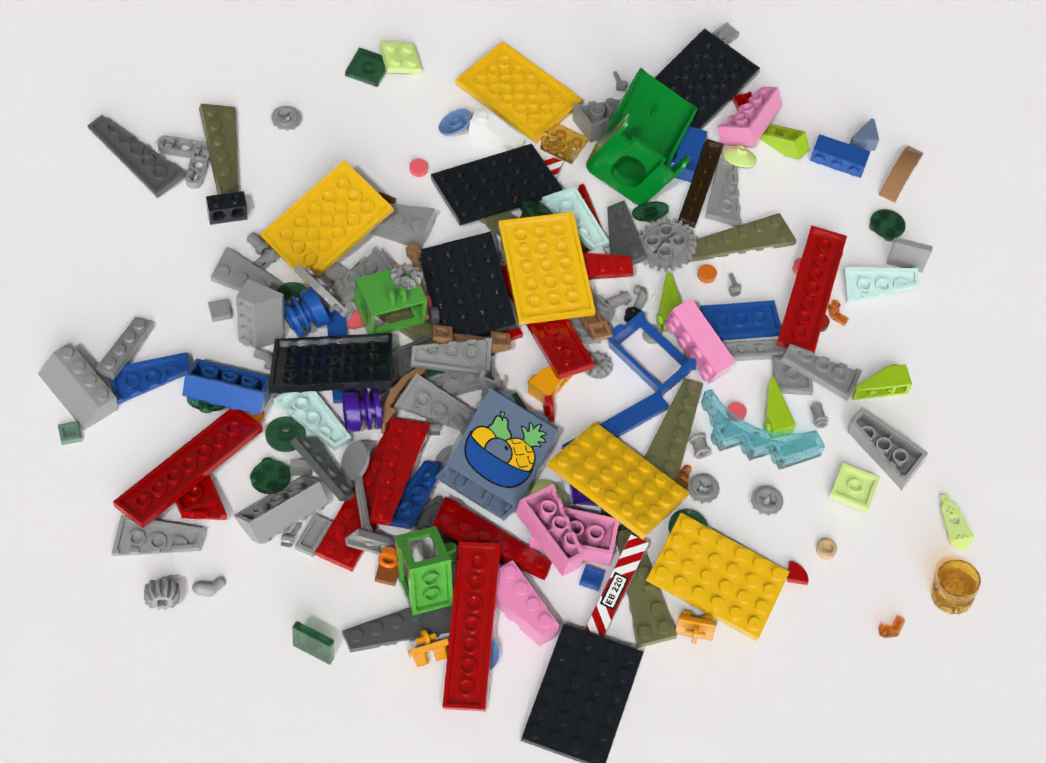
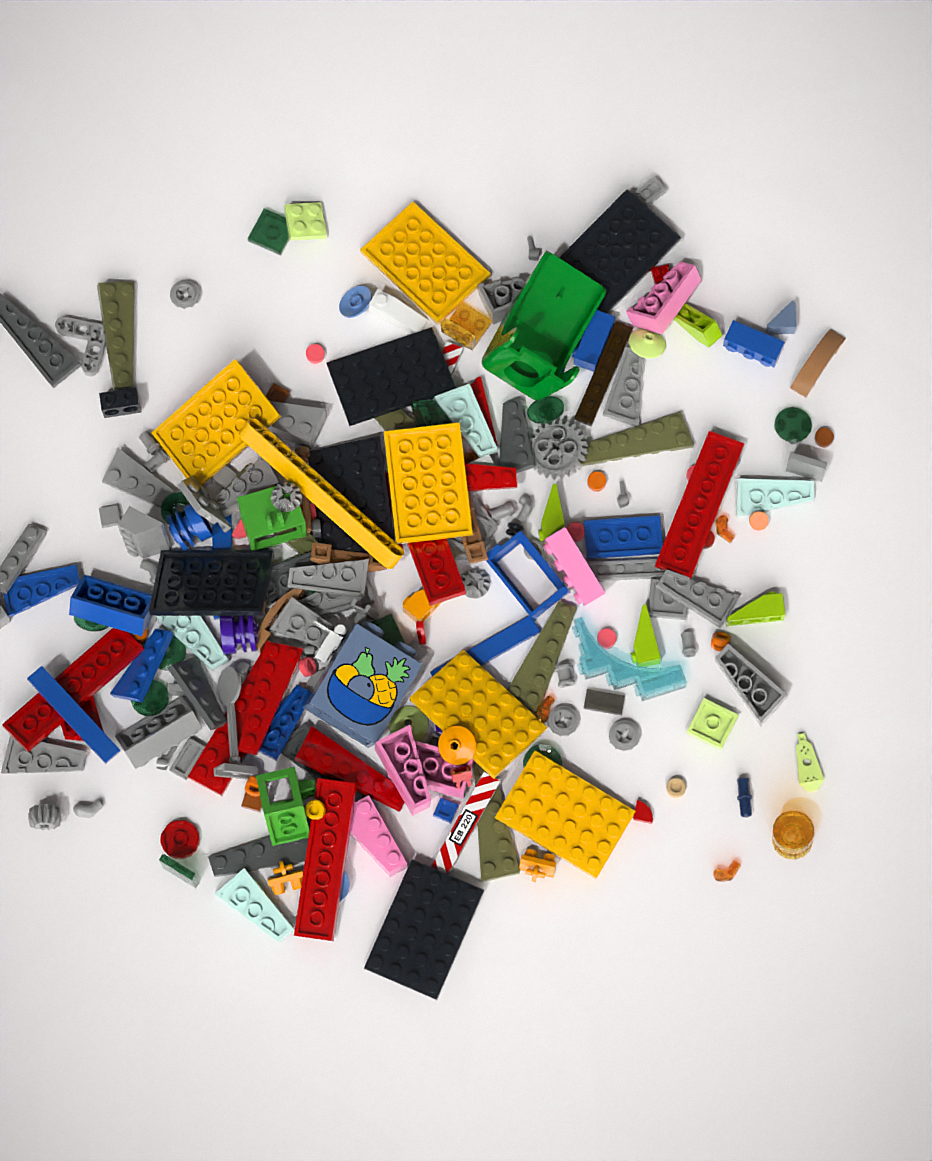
camera: 15 degrees right, 15 degrees up
(191, 488) = (73, 714): none -> blue tile
(261, 450) = (141, 672): none -> blue wing
(311, 612) = (180, 839): none -> red tile
(397, 677) = (252, 901): none -> light aqua wing
(435, 442) = (307, 666): none -> coral tile
(441, 277) = (321, 493): none -> yellow beam
(460, 572) = (315, 809): none -> yellow tile
(461, 413) = (330, 643): none -> white piece
(609, 513) = (465, 741): none -> light orange dish
(609, 534) = (460, 774): none -> tile
(742, 470) = (604, 702): none -> clear smoke tile
(849, 409) = (720, 639): none -> orange tile
(869, 304) = (758, 520): none -> tile
(898, 555) = (744, 797): none -> dark blue axle
(918, 234) = (824, 437): none -> dark orange tile

